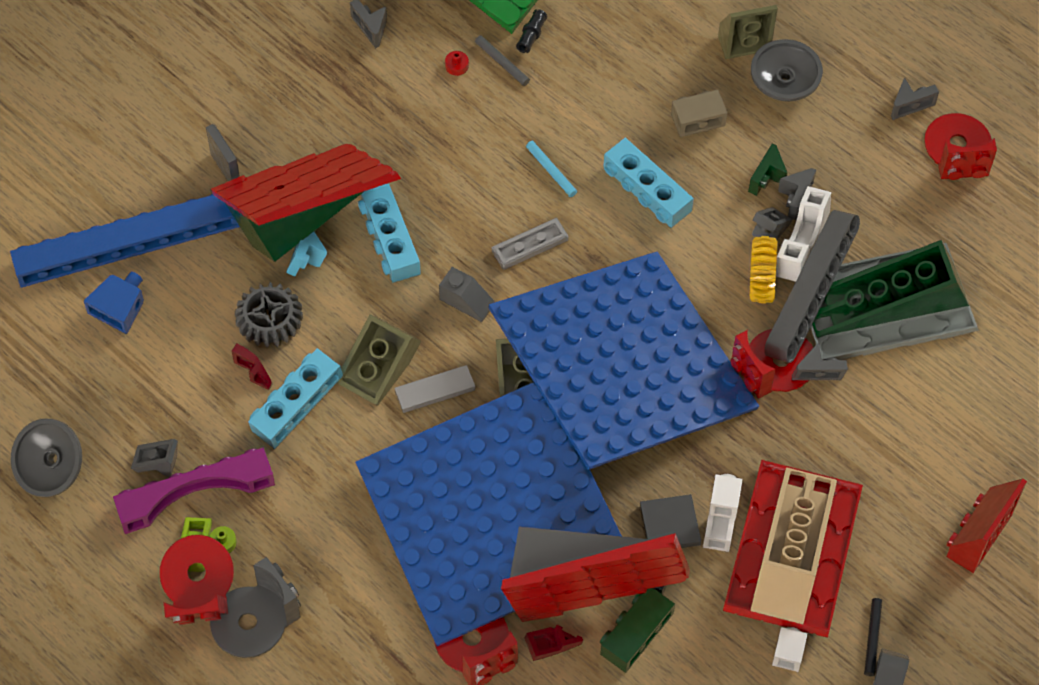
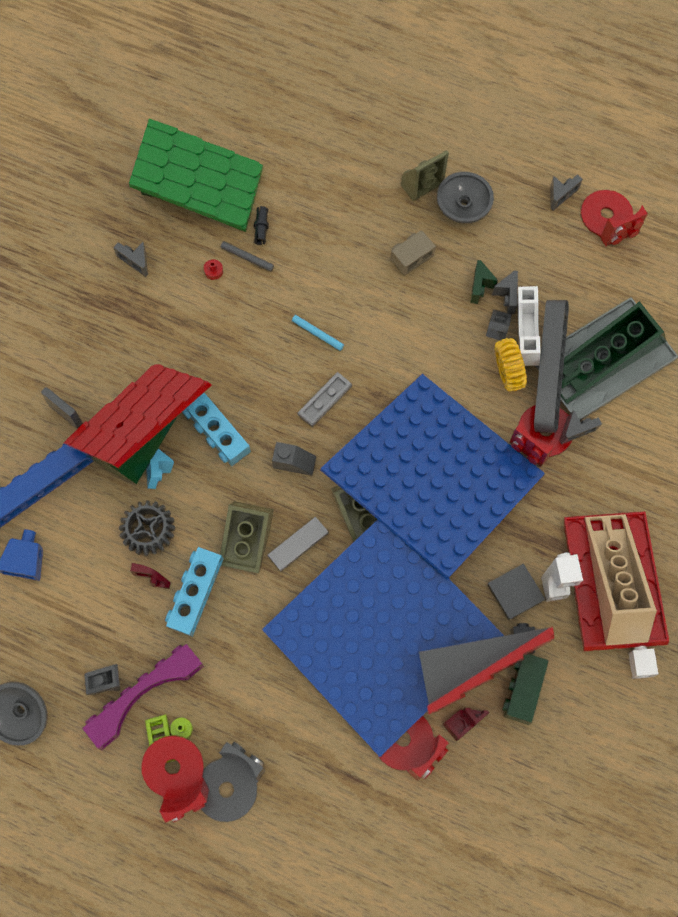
camera: 20 degrees left, 10 degrees up
(643, 170) = (391, 312): medium azure brick -> none

